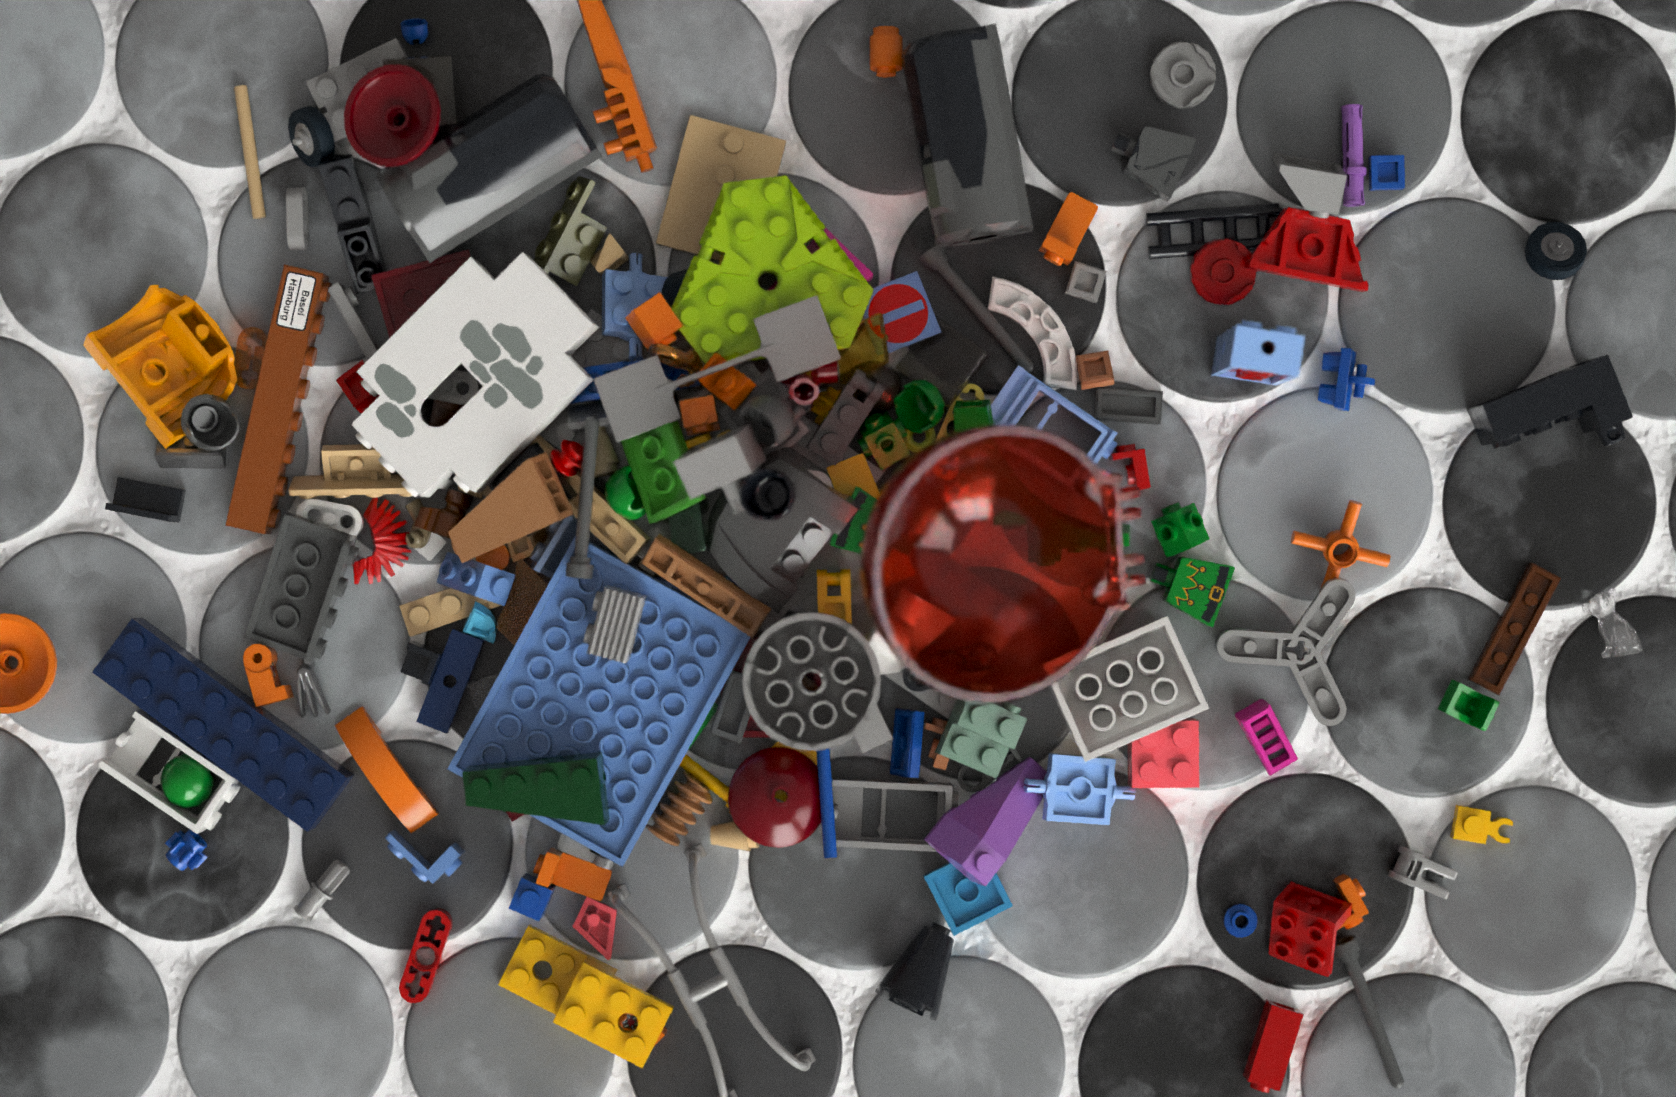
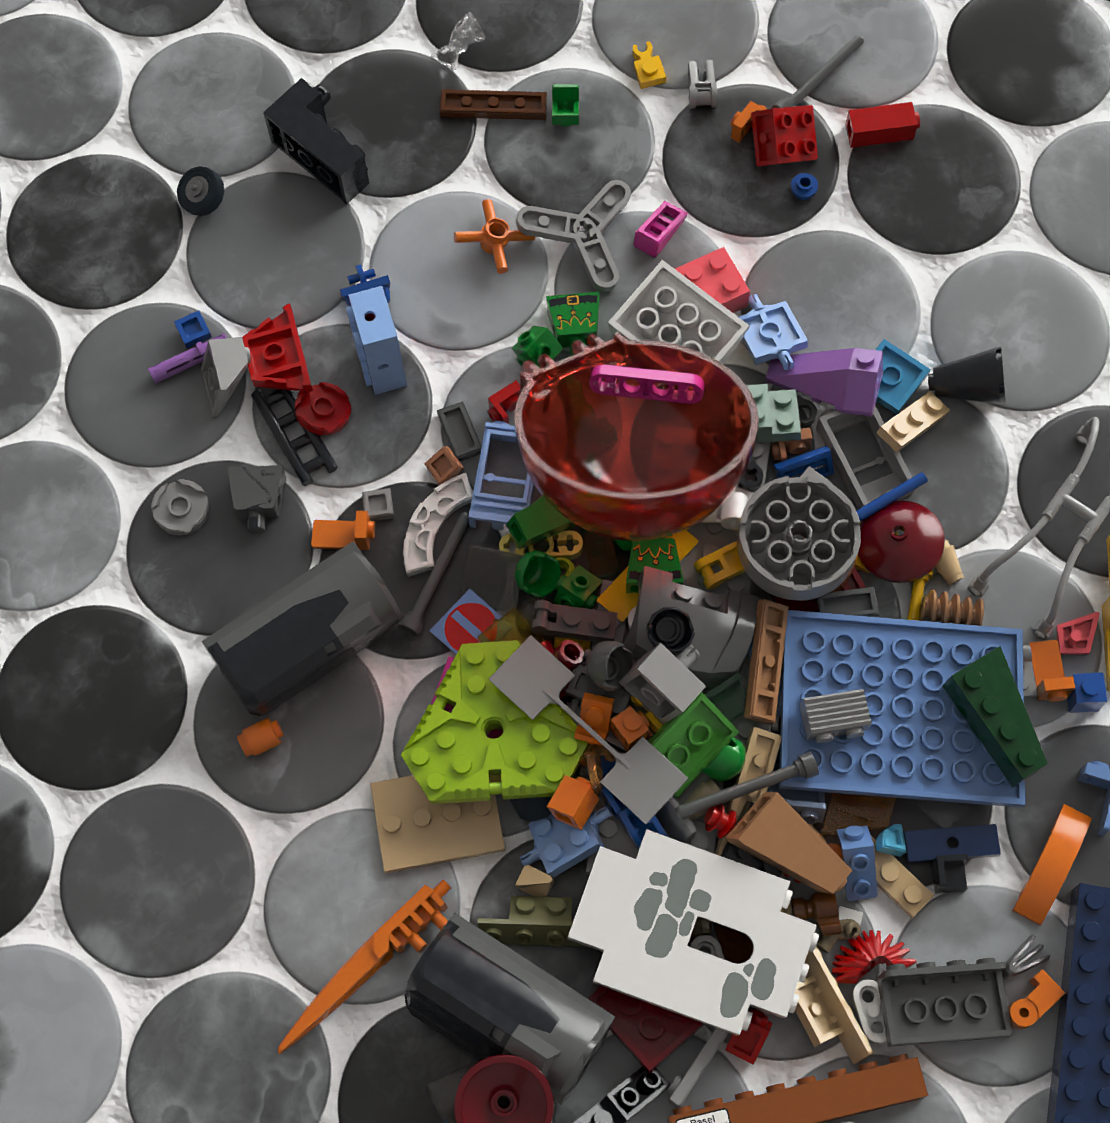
camera: 115 degrees left, 20 degrees down
(901, 883) = (913, 421): none -> tan plate
(1054, 608) = (647, 389): none -> dark pink beam

